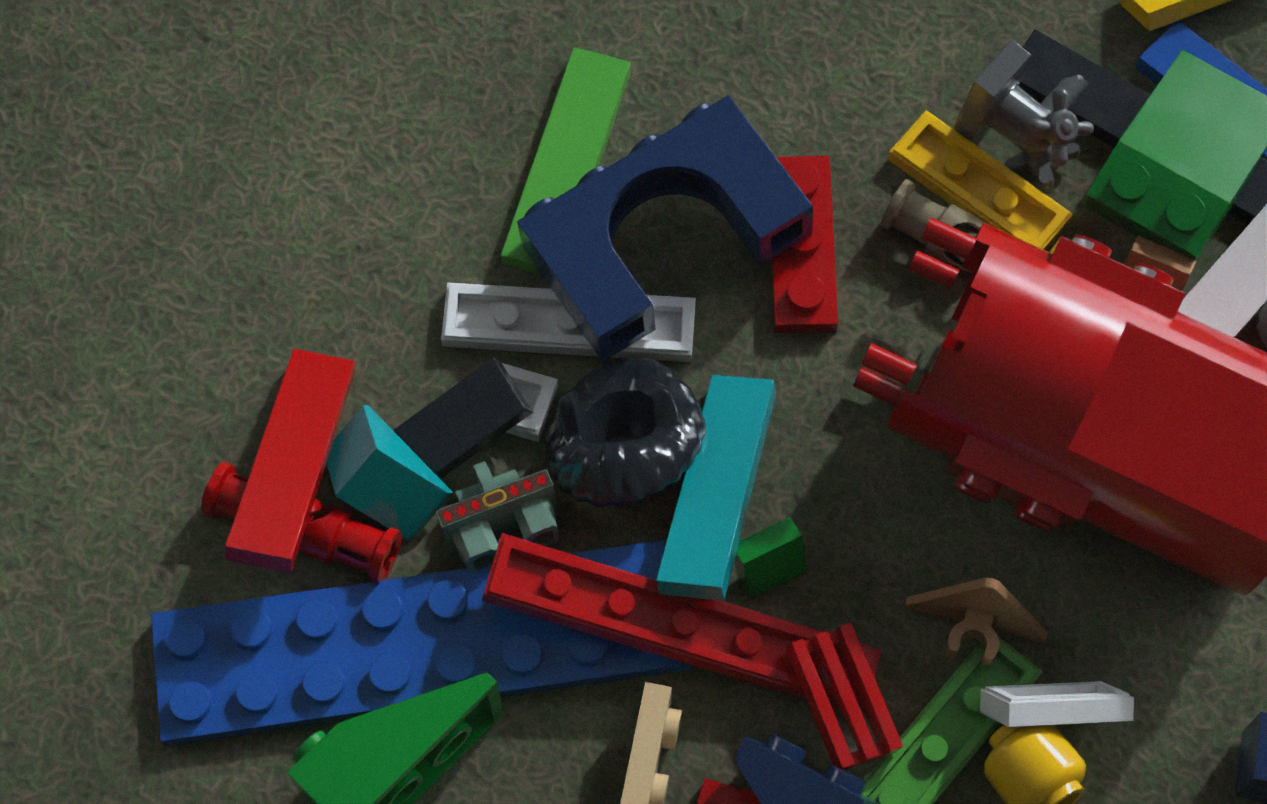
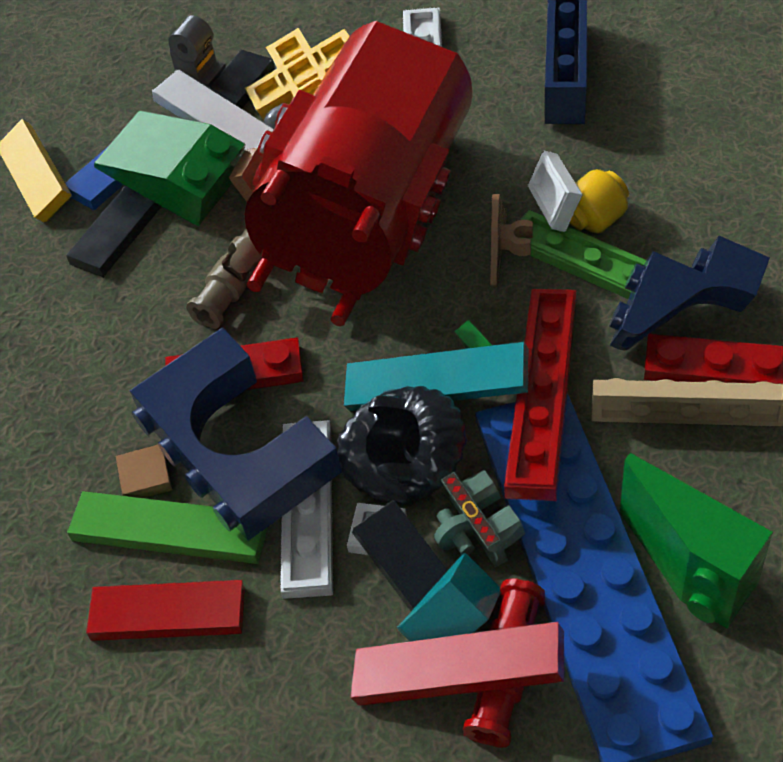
camera: 90 degrees left, 15 degrees down
(452, 160) = (166, 610): none -> red tile
(647, 119) = (144, 473): none -> medium nougat tile
(866, 687) = (574, 293): red tile -> none
(977, 182) = (180, 280): yellow tile -> none
(1034, 127) = (132, 243): dark grey piece -> none

